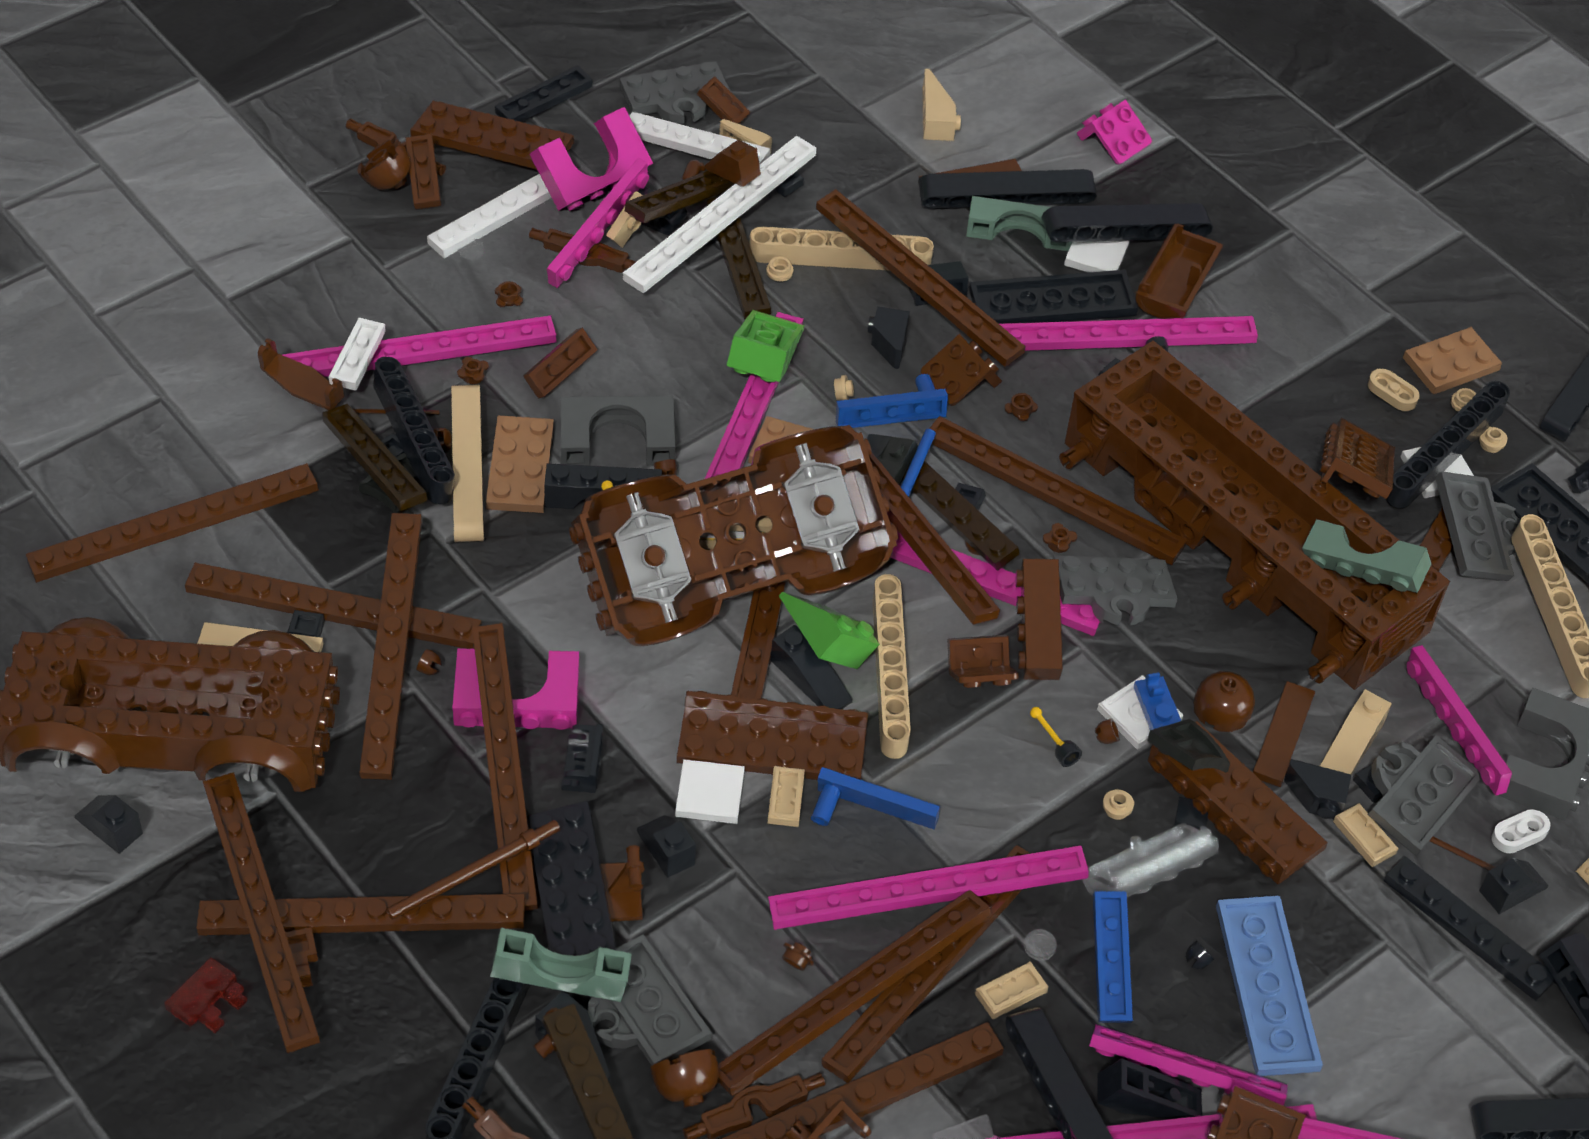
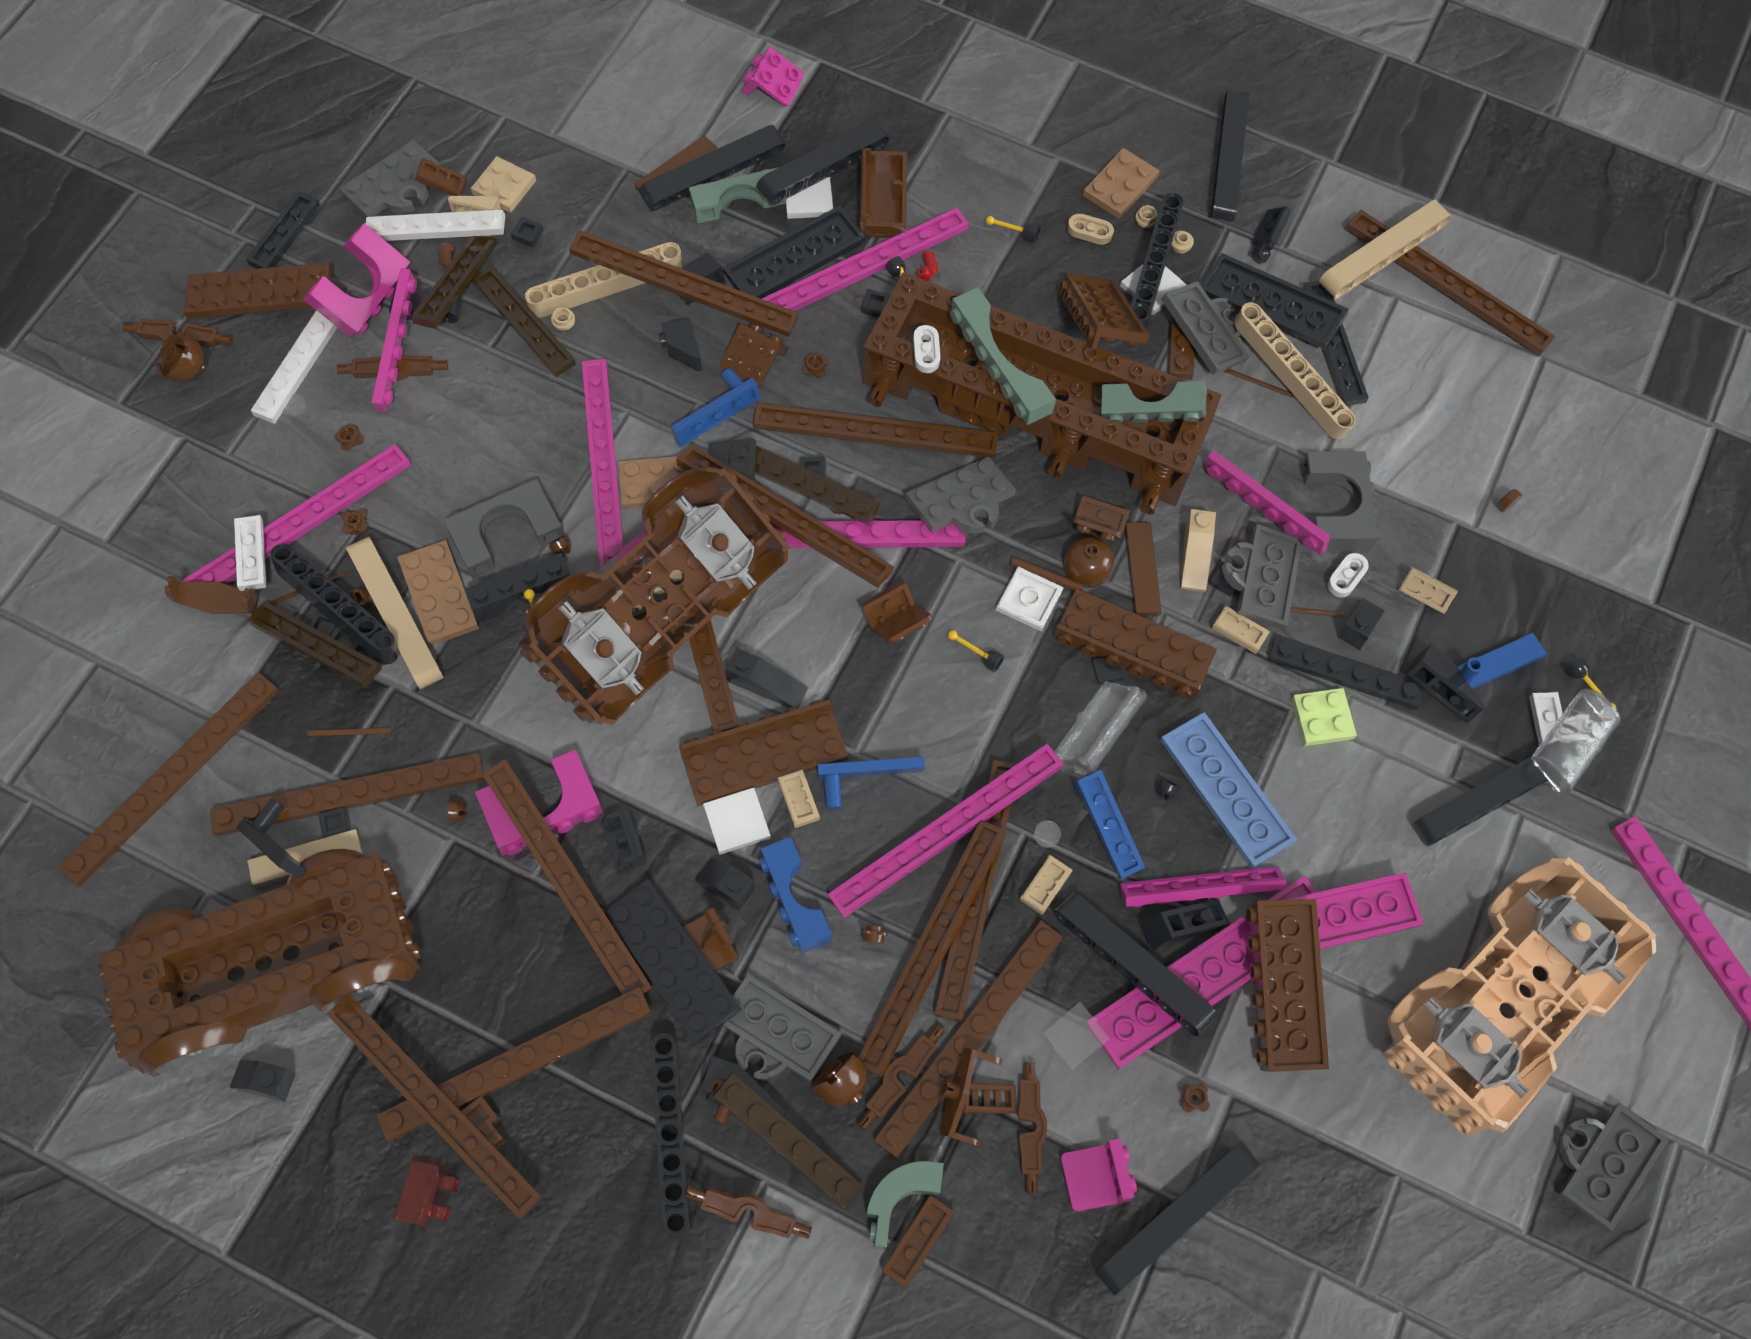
camera: 25 degrees left, 15 degrees up
(230, 596) = (257, 835): none -> black piece
(350, 547) = (349, 731): none -> reddish brown piece
(391, 647) = (417, 812): reddish brown plate -> none
(423, 171) = (216, 350): reddish brown plate -> none
(527, 841) = (619, 940): reddish brown bar -> none
(560, 363) = (425, 485): reddish brown plate -> none
(595, 974) = (677, 1050): sand green arch -> none
(623, 226) = (415, 332): tan plate -> none
(718, 216) = (490, 290): white plate -> none
(731, 915) = (807, 925): none -> blue arch
(736, 163) = (483, 237): reddish brown slope -> none
(764, 346) = (588, 399): bright green slope -> none
(784, 126) = (504, 181): none -> tan plate
(832, 633) = (765, 639): bright green slope -> none
(843, 388) = (668, 409): tan plate -> none
(891, 666) = (825, 656): tan beam -> none
(917, 461) = (762, 455): blue bar -> none
(938, 110) = (620, 113): tan slope -> none
(1040, 619) = (922, 555): reddish brown brick -> none
(1059, 538) = (900, 478): reddish brown plate -> none
(1107, 732) = (1015, 627): reddish brown hinge -> none
(1115, 810) = (1049, 693): tan plate -> none
(1138, 414) = (926, 351): none -> white plate
(1156, 701) = (1042, 589): blue plate -> none
(1185, 708) = (1047, 574): none -> reddish brown bar
(1189, 746) = (1086, 618): pearl dark grey plate -> none
(1197, 359) = (930, 268): none -> red arm
(1226, 494) = (1028, 394): none -> sand green arch
(1259, 663) = (1101, 518): none -> reddish brown bracket
(1318, 788) = (1192, 606): black slope -> none
(1323, 368) = (1030, 231): none -> hinge
(1420, 961) = (1323, 717): none -> yellowish green plate
(1513, 606) = (1258, 382): none -> reddish brown piece

